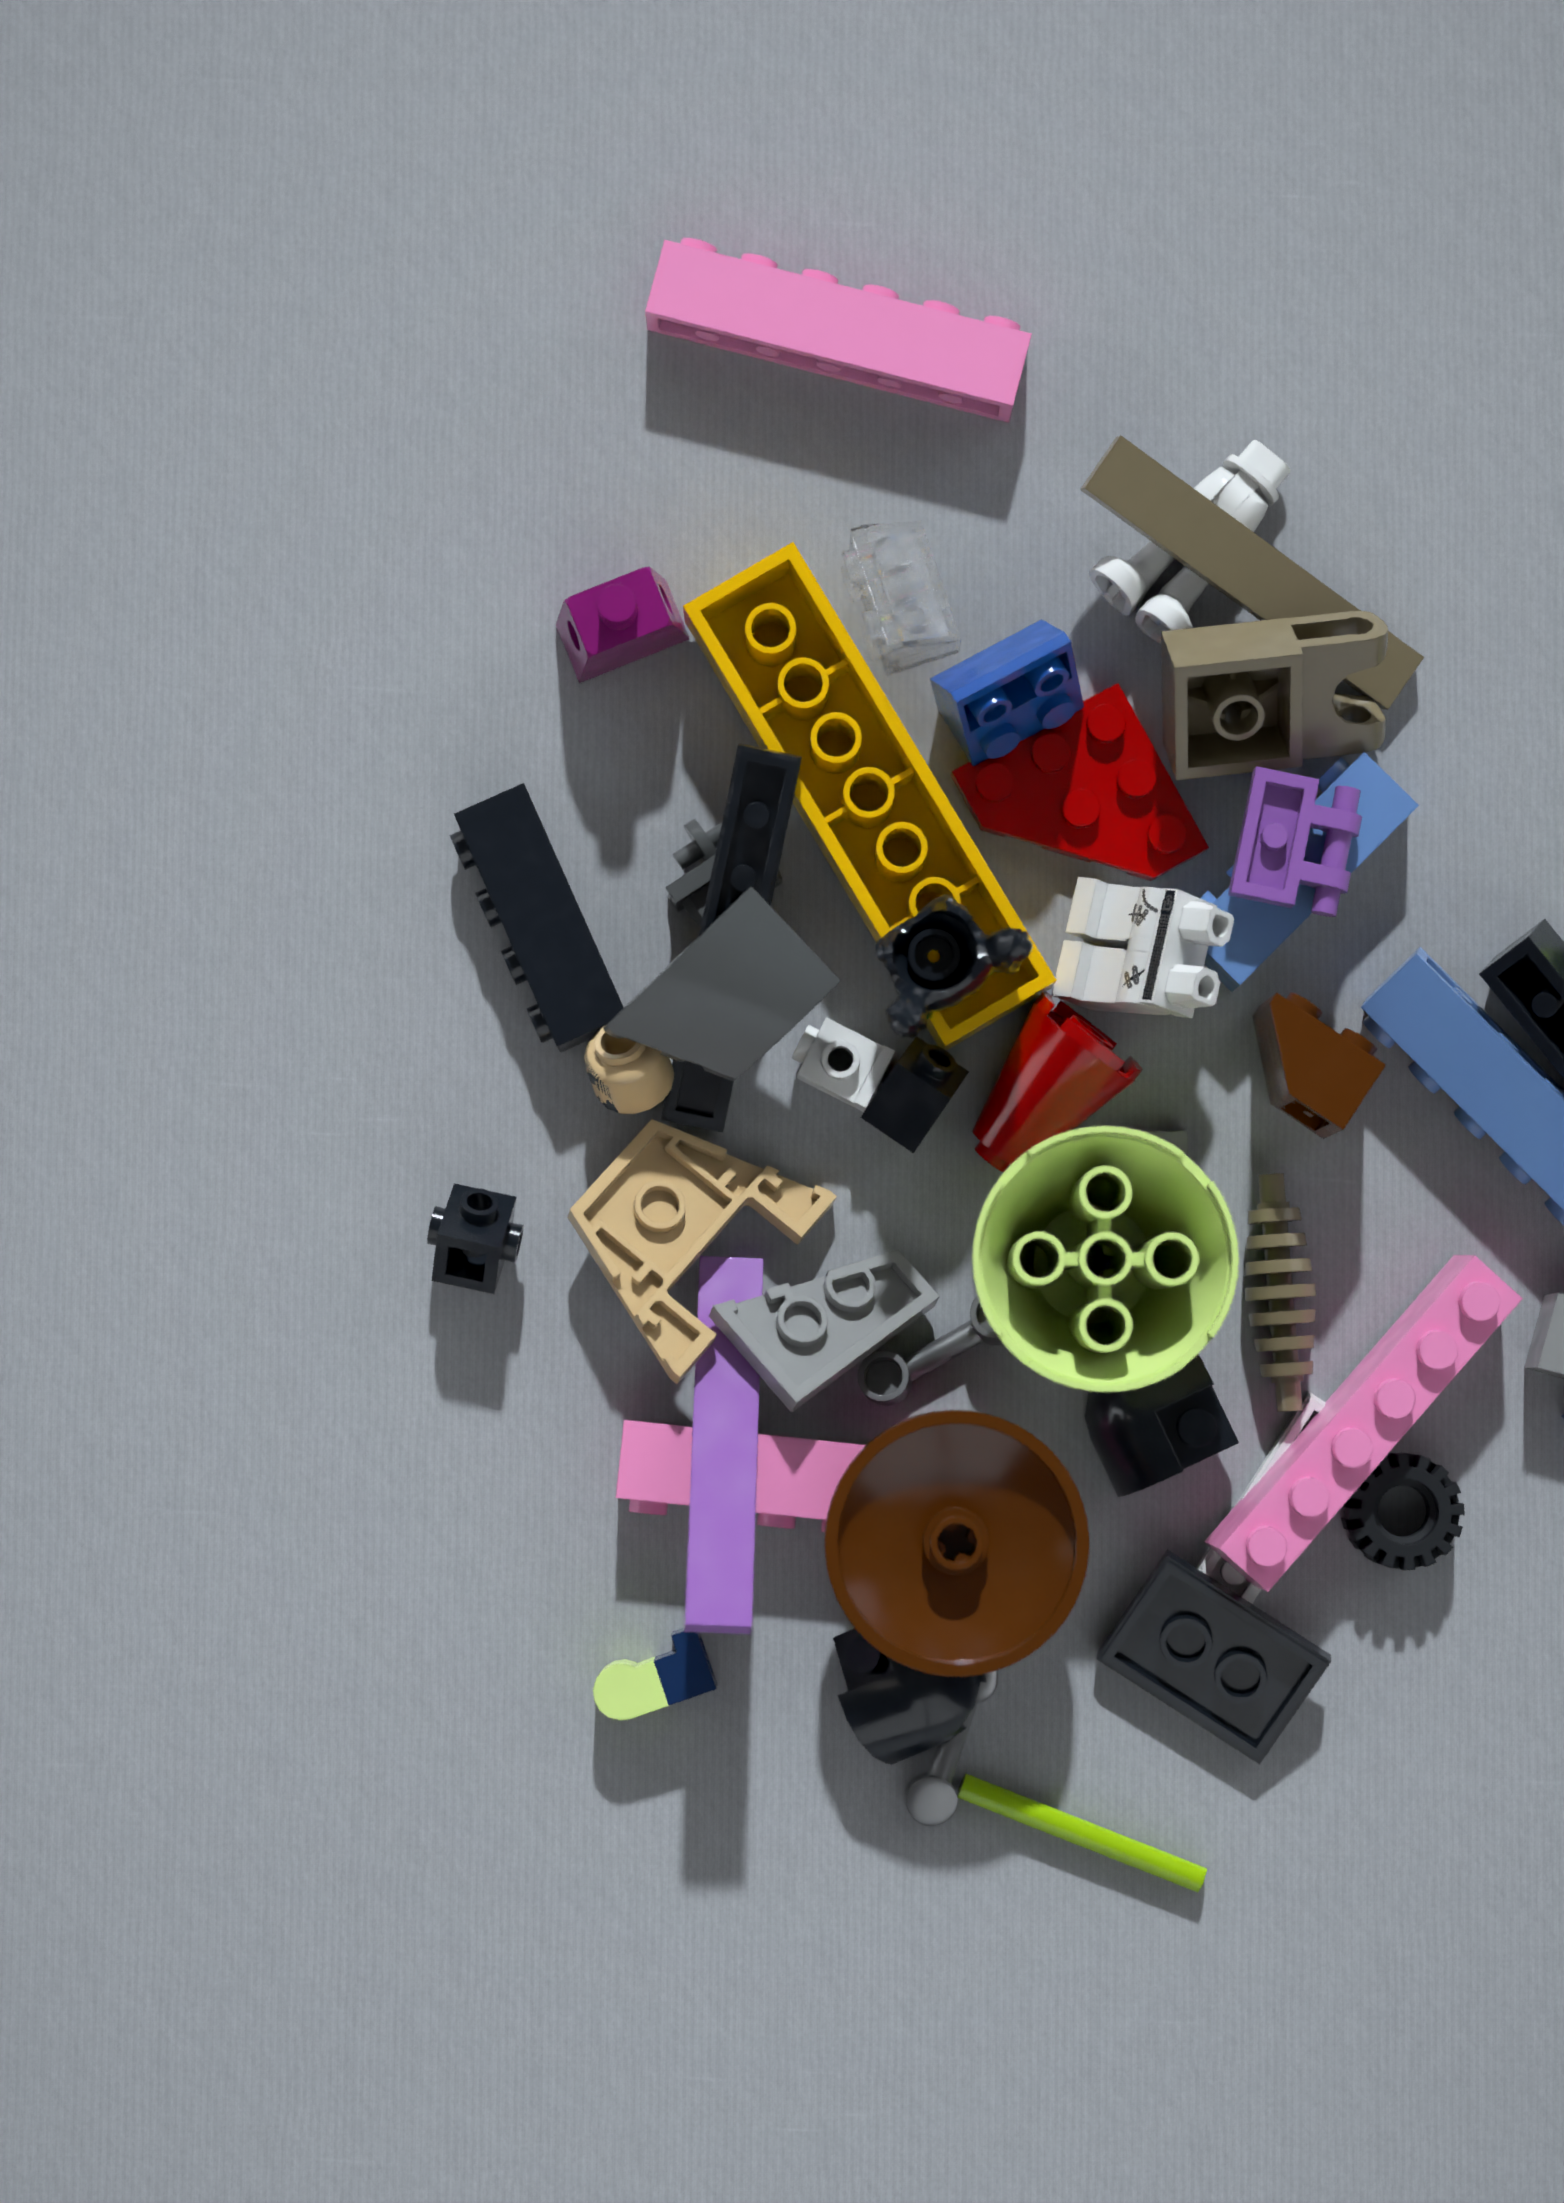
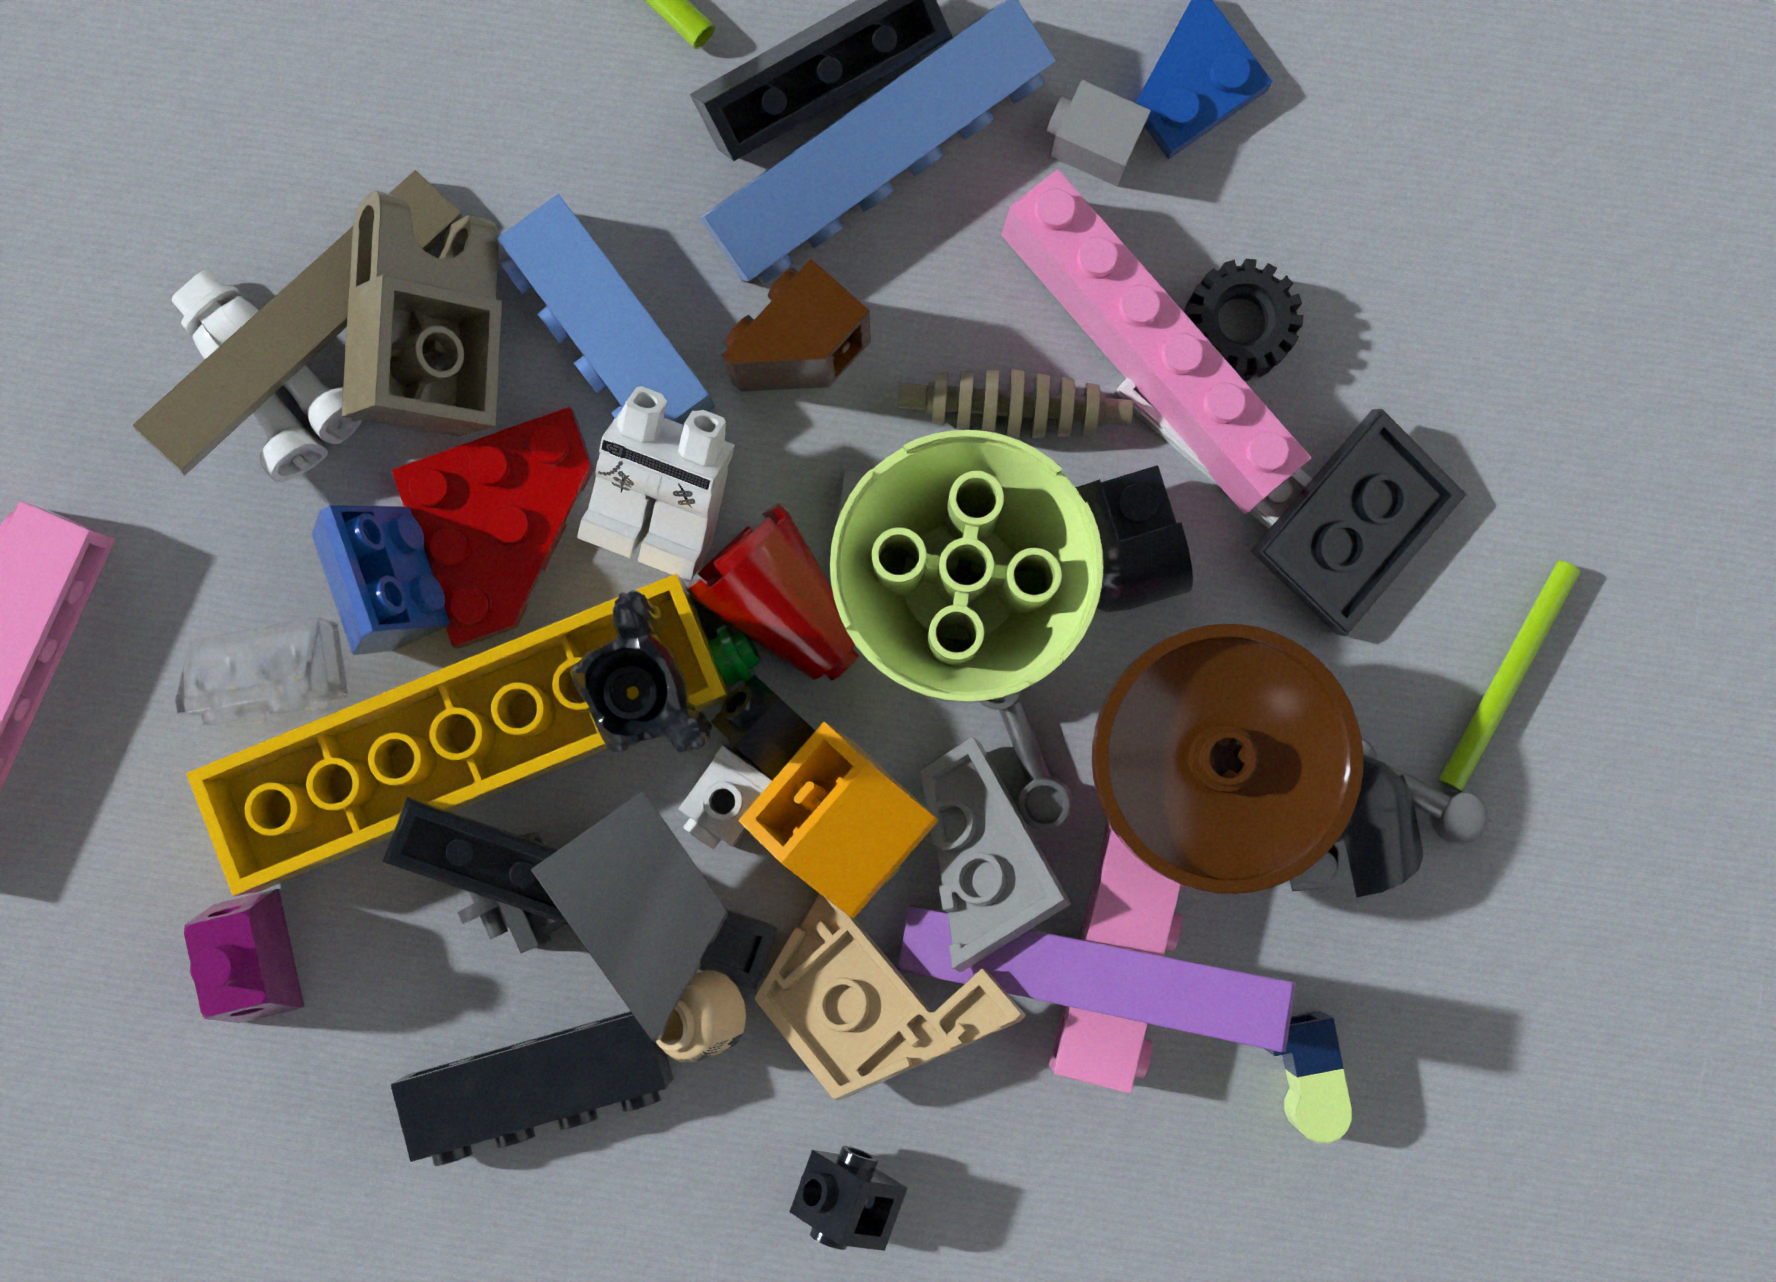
camera: 80 degrees left, 0 degrees up
(839, 1174) = (838, 820): none -> light orange slope
(985, 1049) = (734, 655): none -> green plate
(1275, 840) = (568, 335): medium lavender plate -> none

